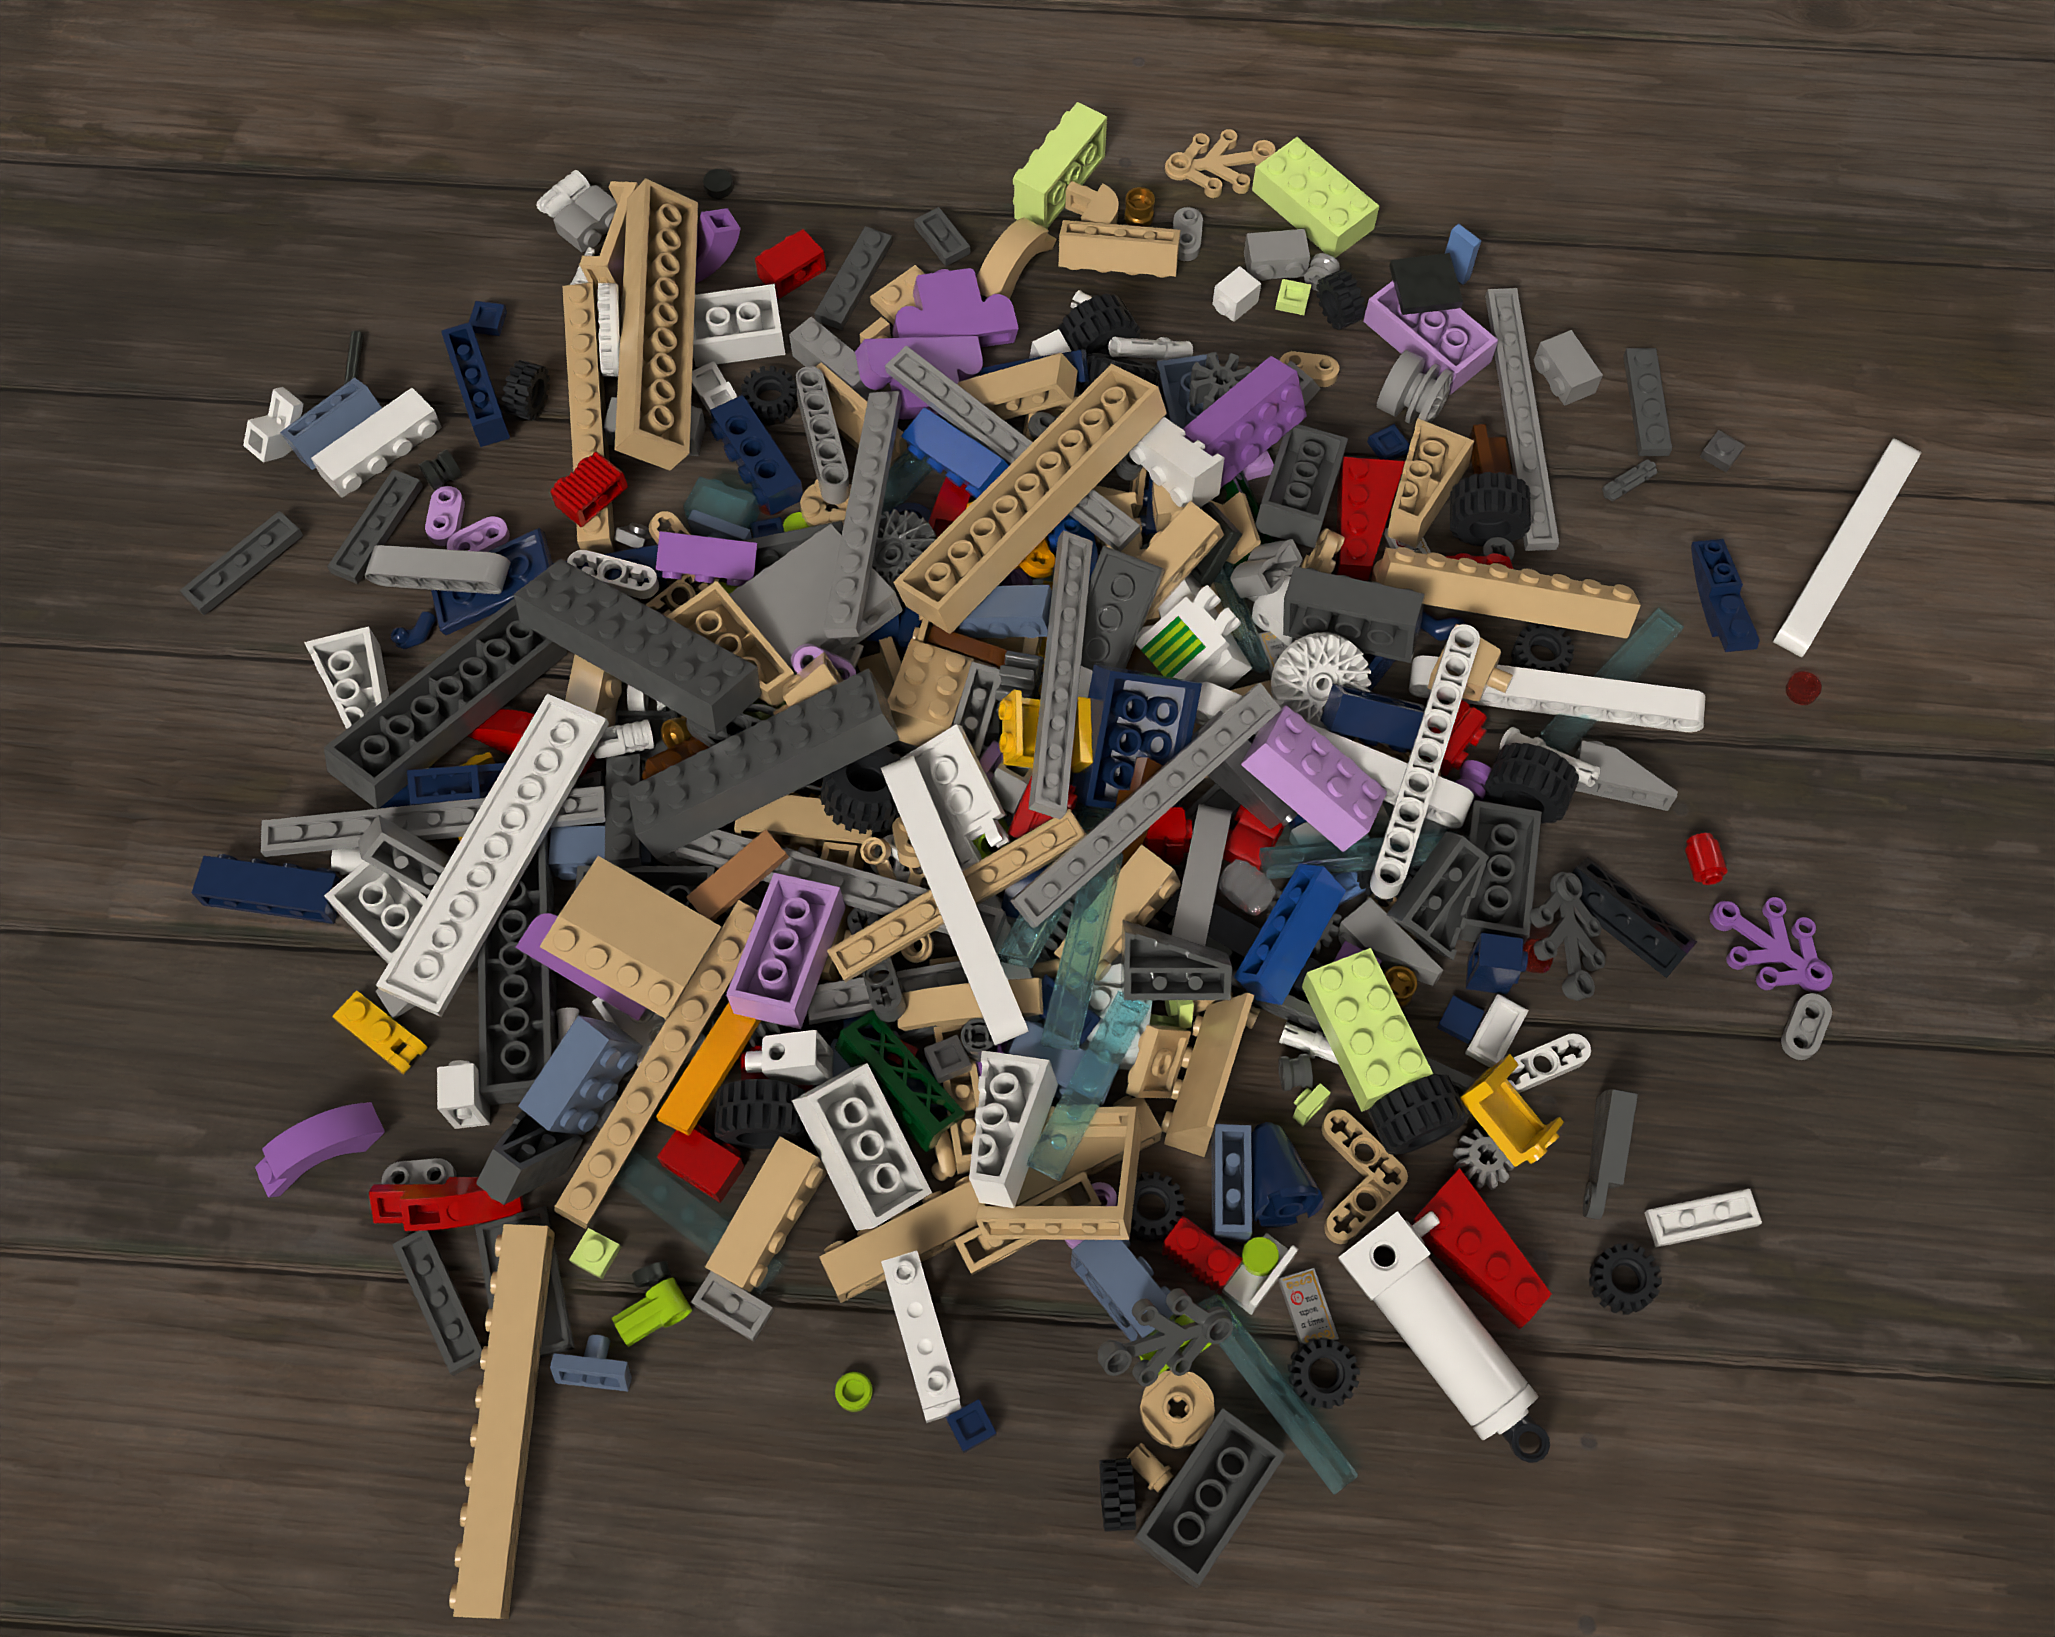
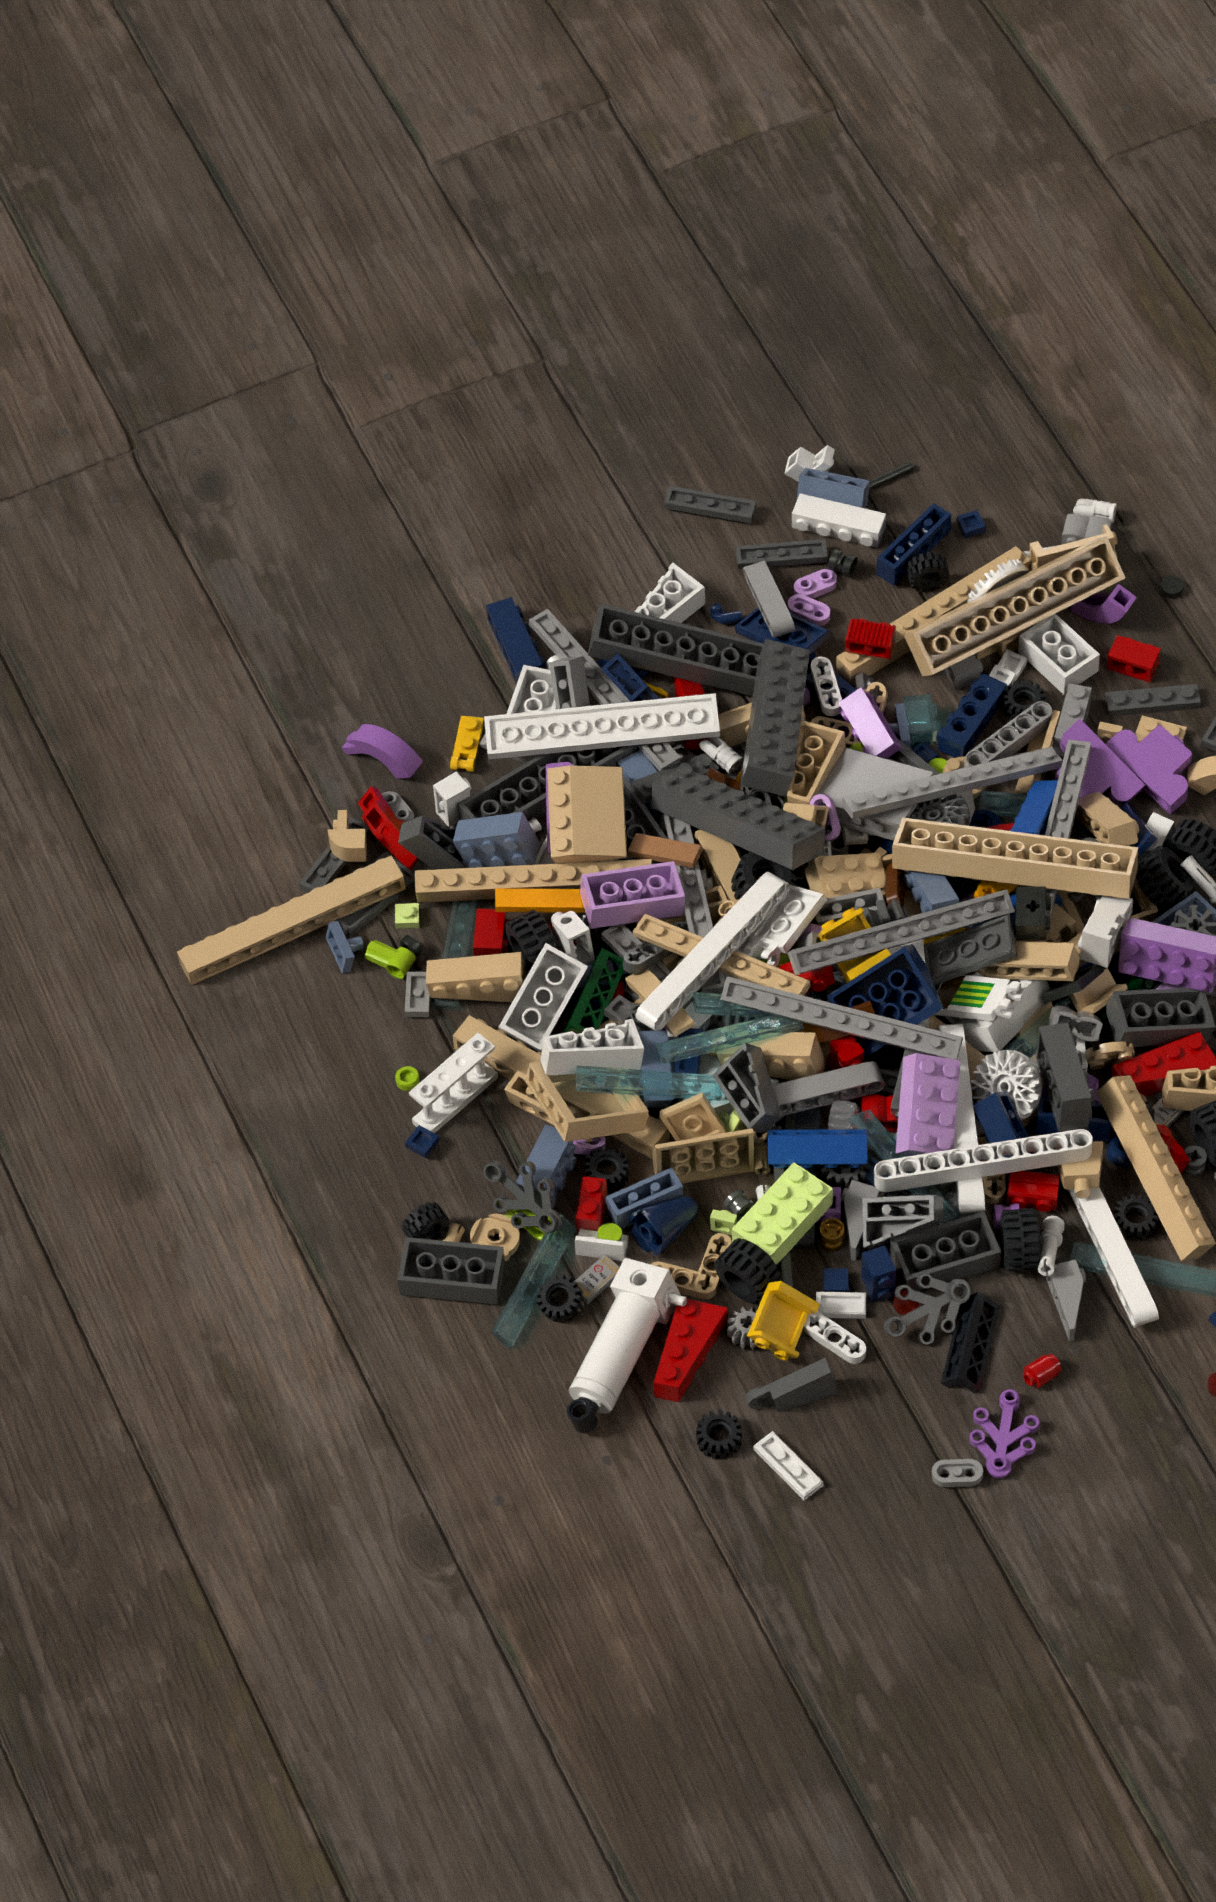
camera: 65 degrees right, 10 degrees down
(438, 1274) = (347, 843): none -> tan brick
(1114, 522) = (1031, 913): none -> pearl dark grey brick

